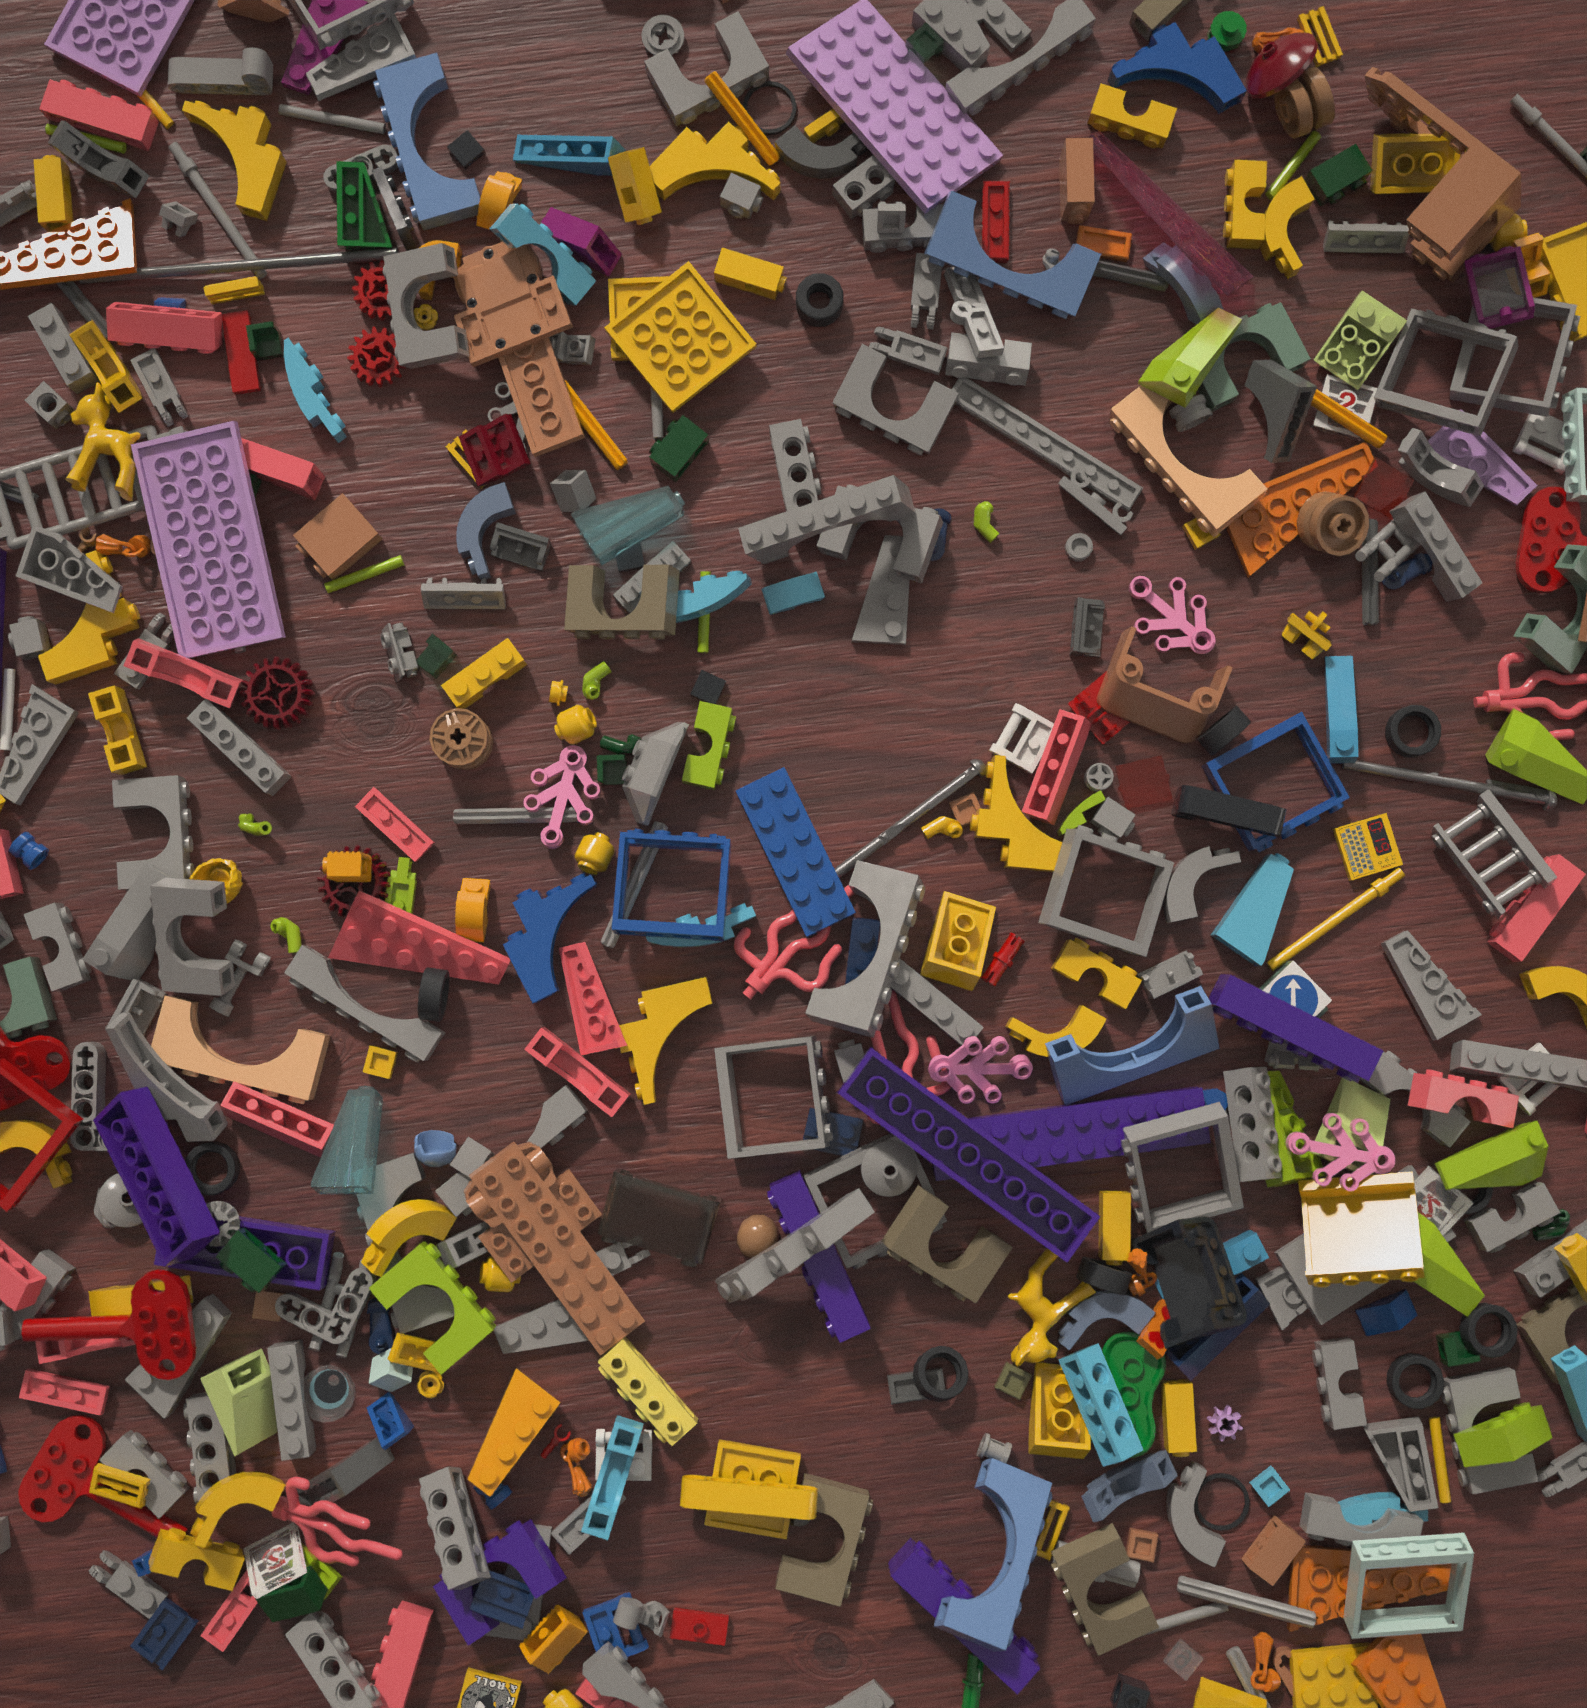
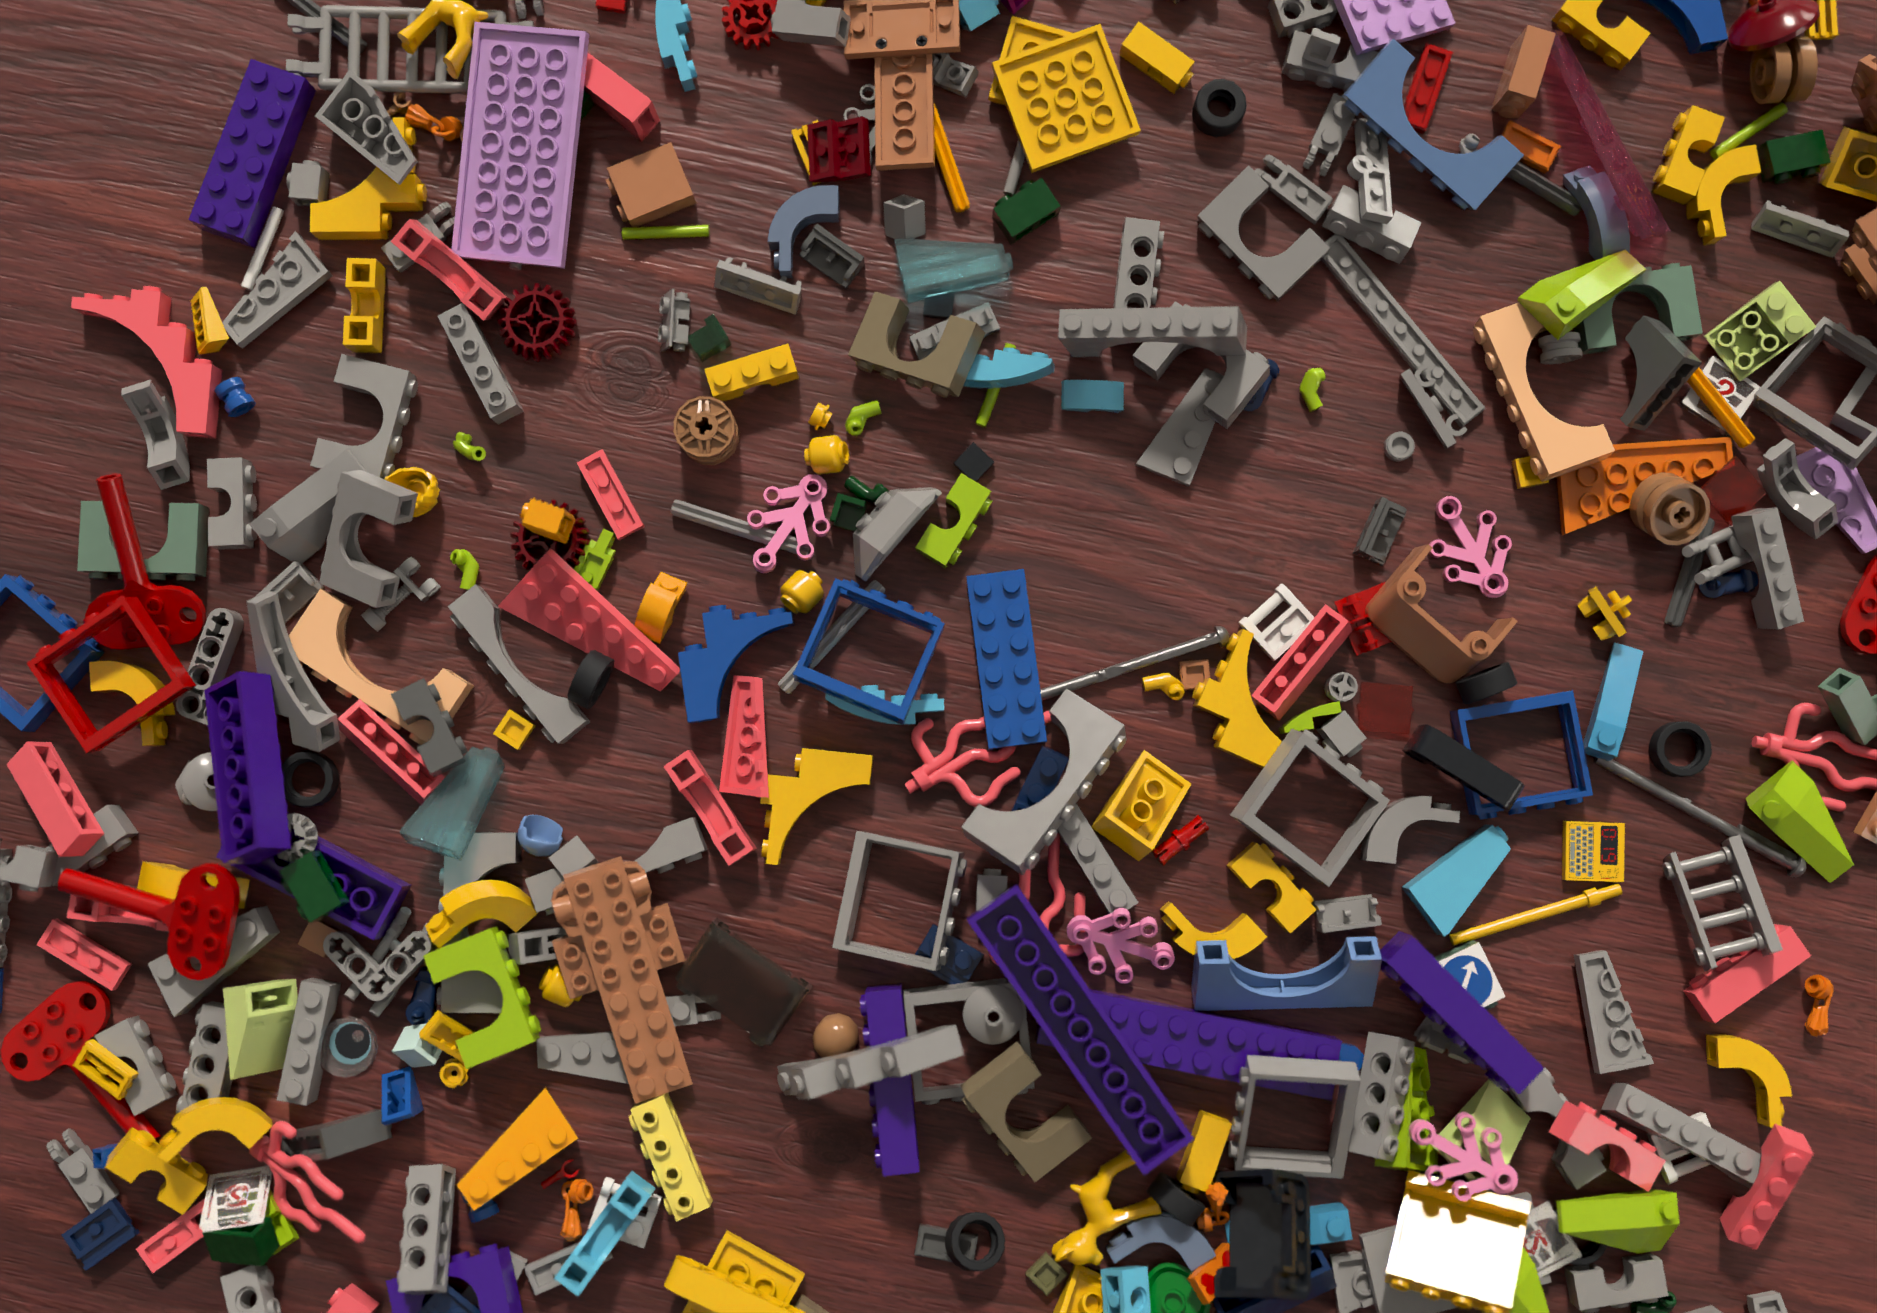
camera: 20 degrees right, 0 degrees up
(289, 1066) = (443, 750): none -> dark grey arch

